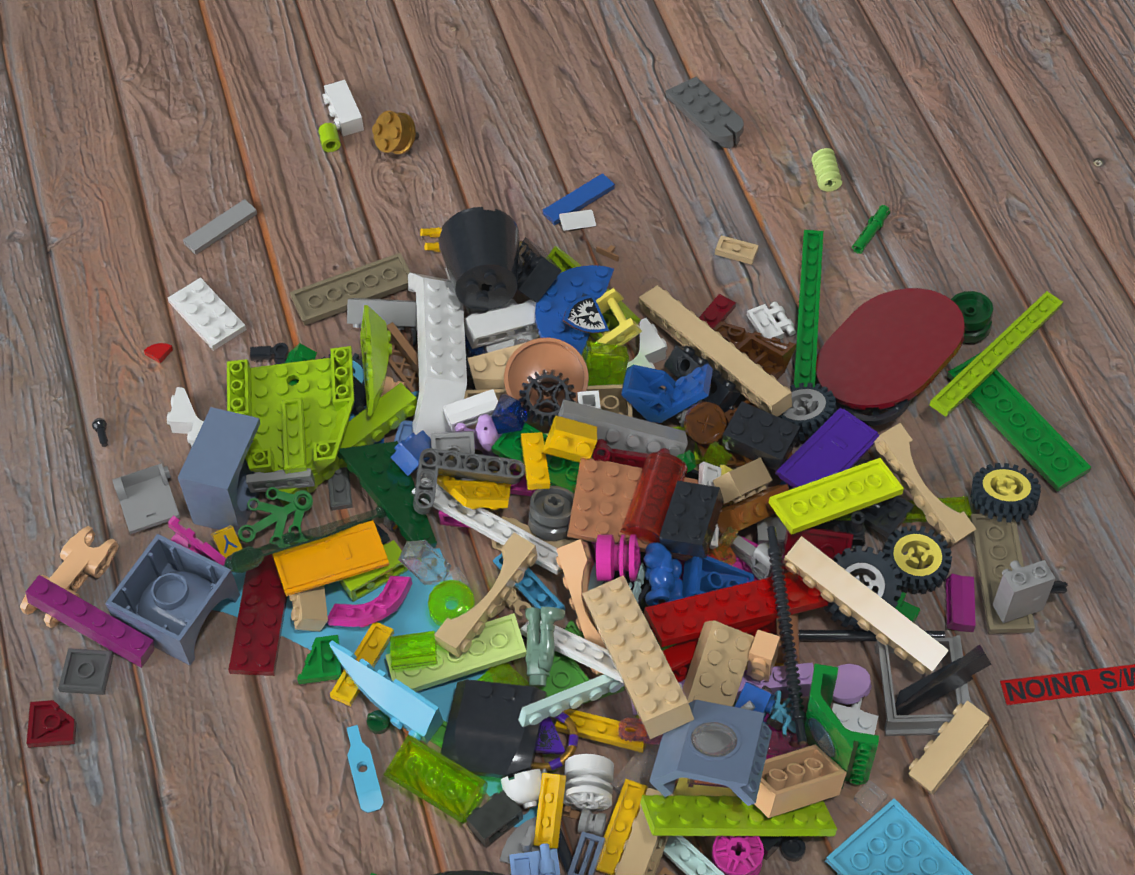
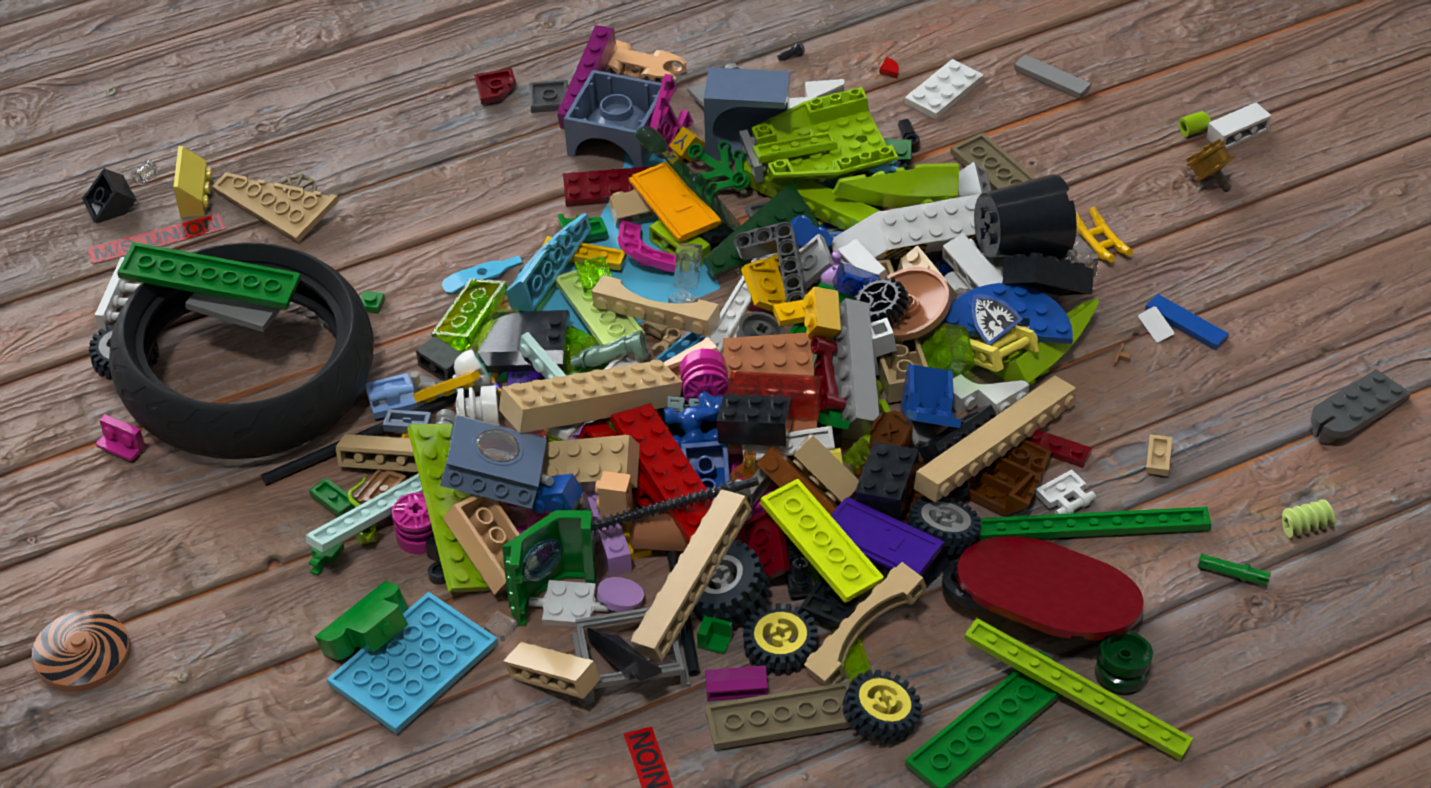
camera: 80 degrees right, 10 degrees down
(446, 592) = (653, 287): clear neon green wheel -> none
(1025, 590) = (738, 709): light grey piece -> none

